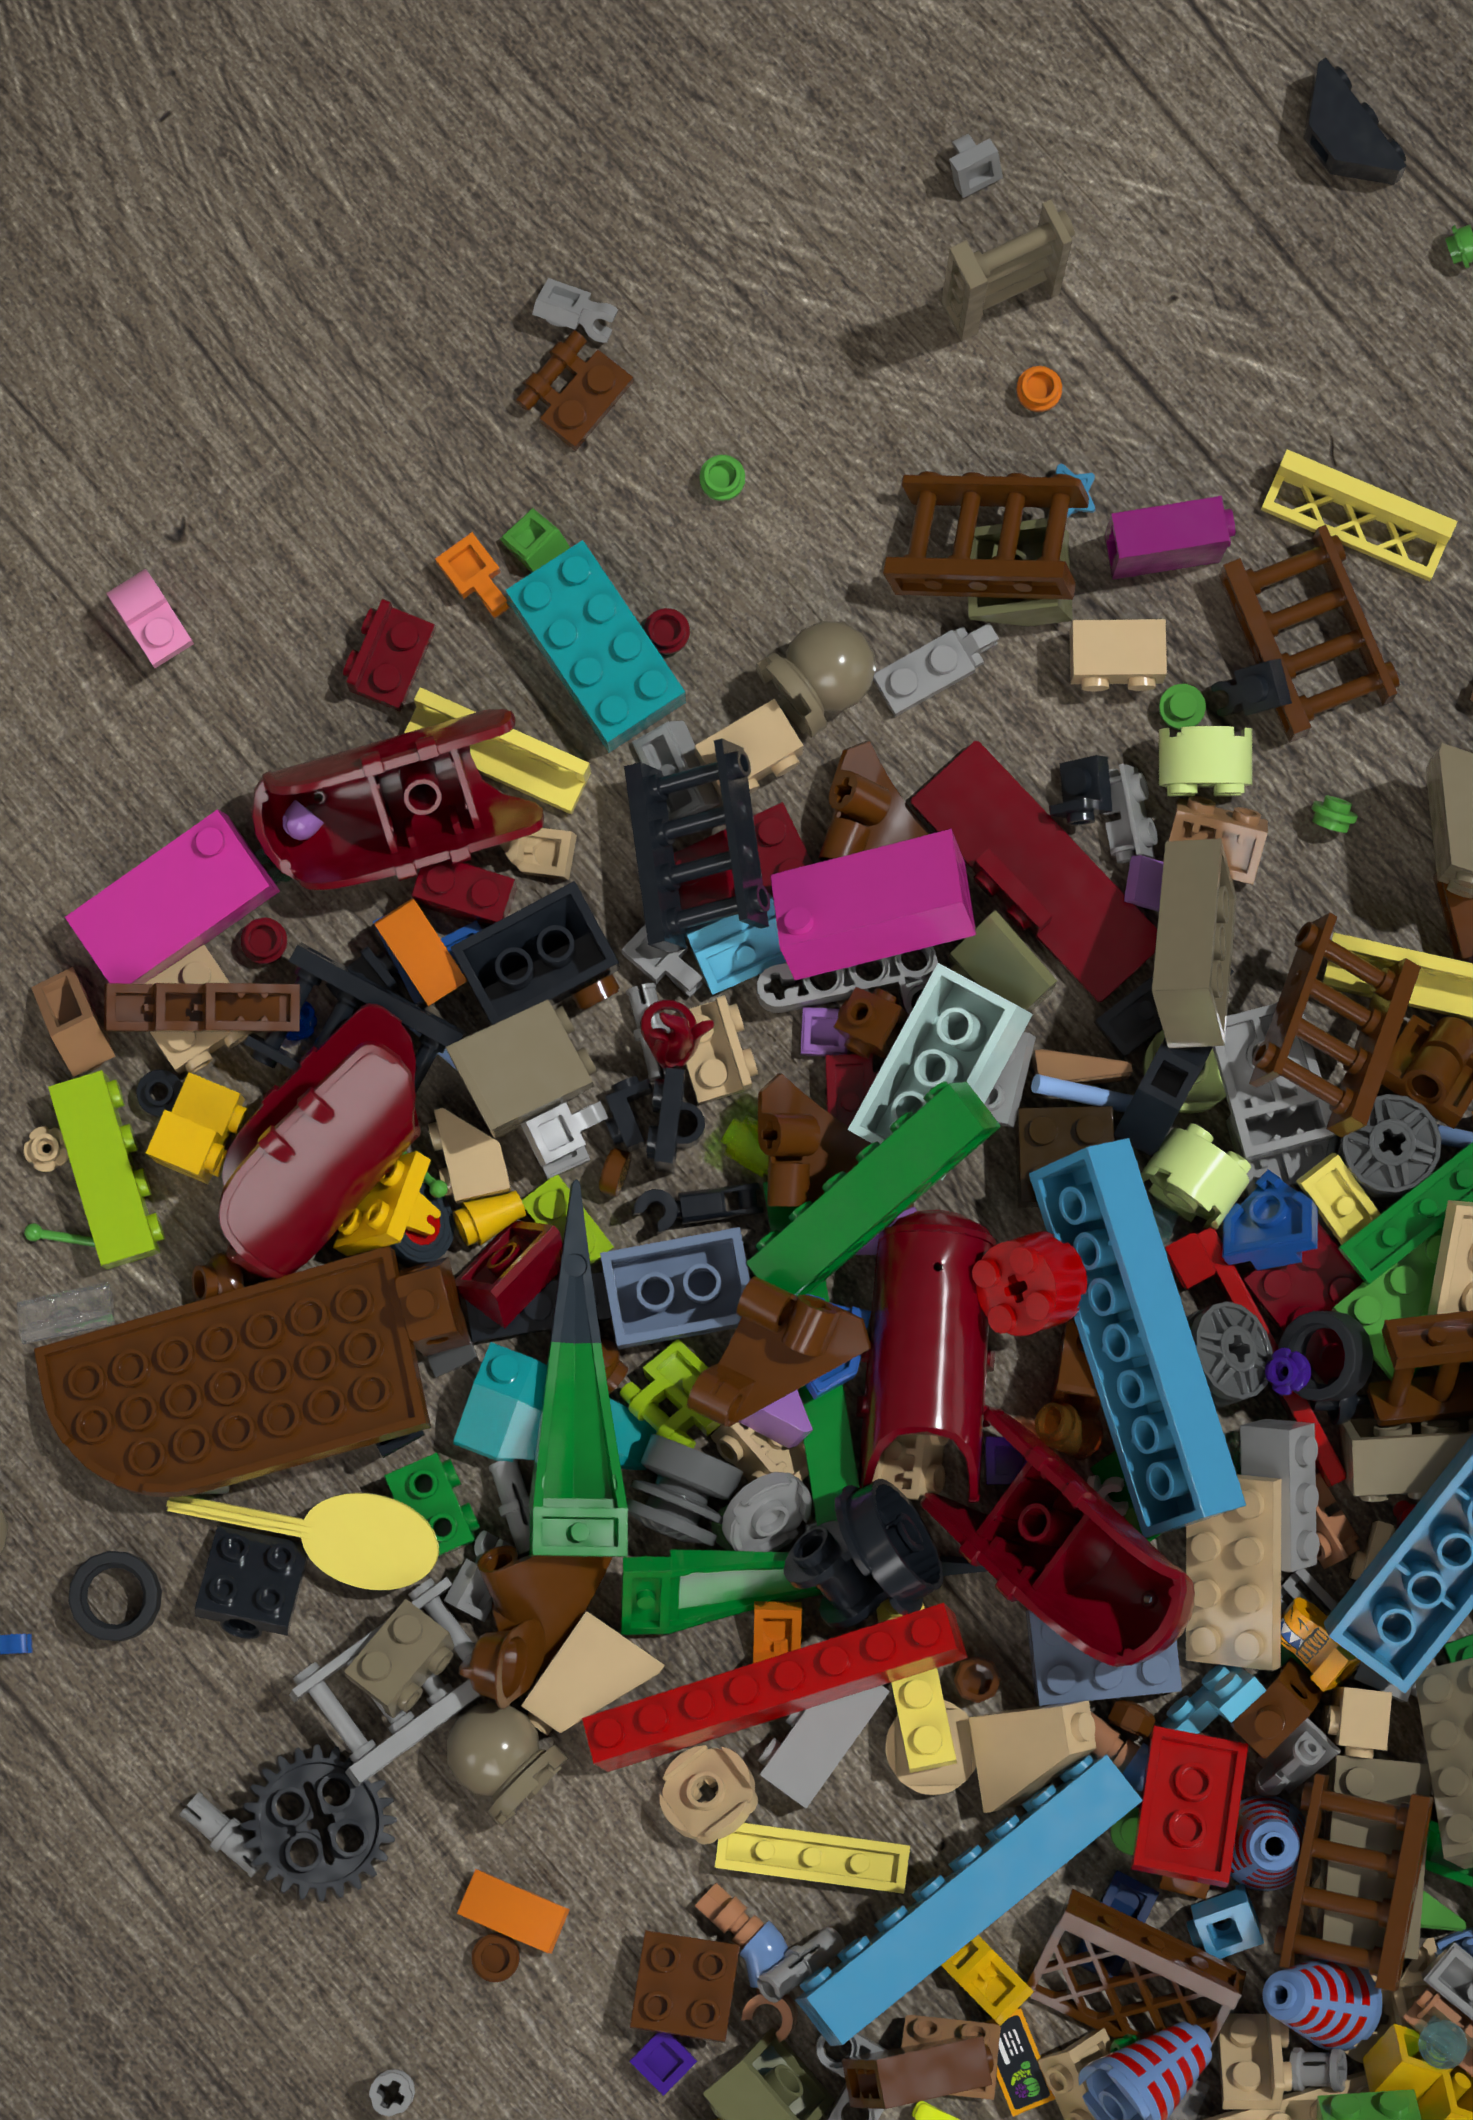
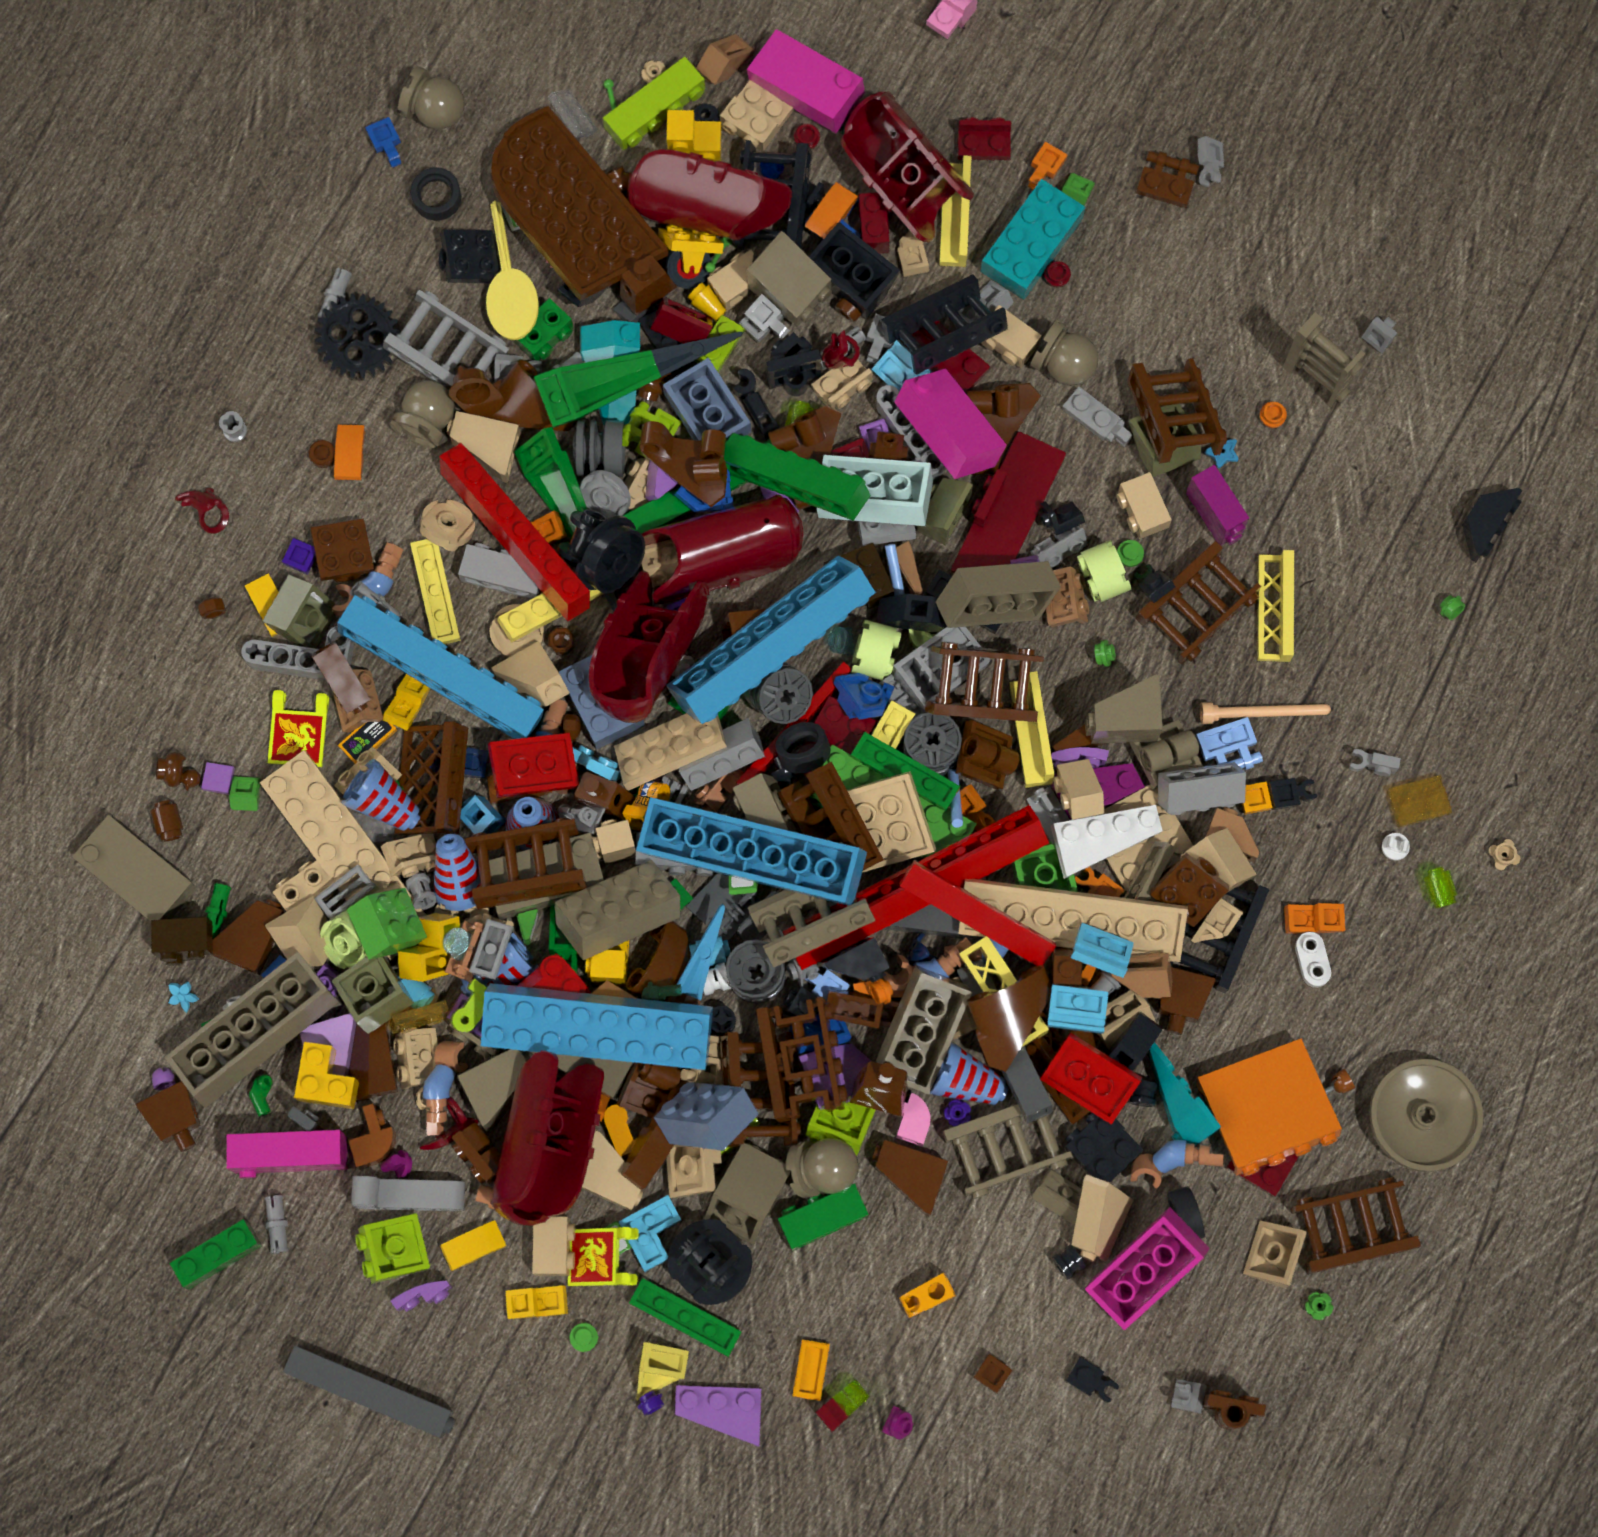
camera: 70 degrees right, 5 degrees down
(202, 1007) = (756, 112): reddish brown slope -> none
(300, 822) = (876, 127): medium lavender hinge -> none
(401, 1659) = (455, 338): dark tan bracket -> none
(615, 1172) = (756, 355): reddish brown tile -> none
(722, 477) = (1152, 271): bright green plate -> none
(1029, 1283) = (777, 573): red brick -> none
(1069, 1430) = (711, 633): clear orange brick -> none
(1190, 1261) = (827, 664): red slope -> none
(1298, 1368) = (786, 729): dark purple plate -> none

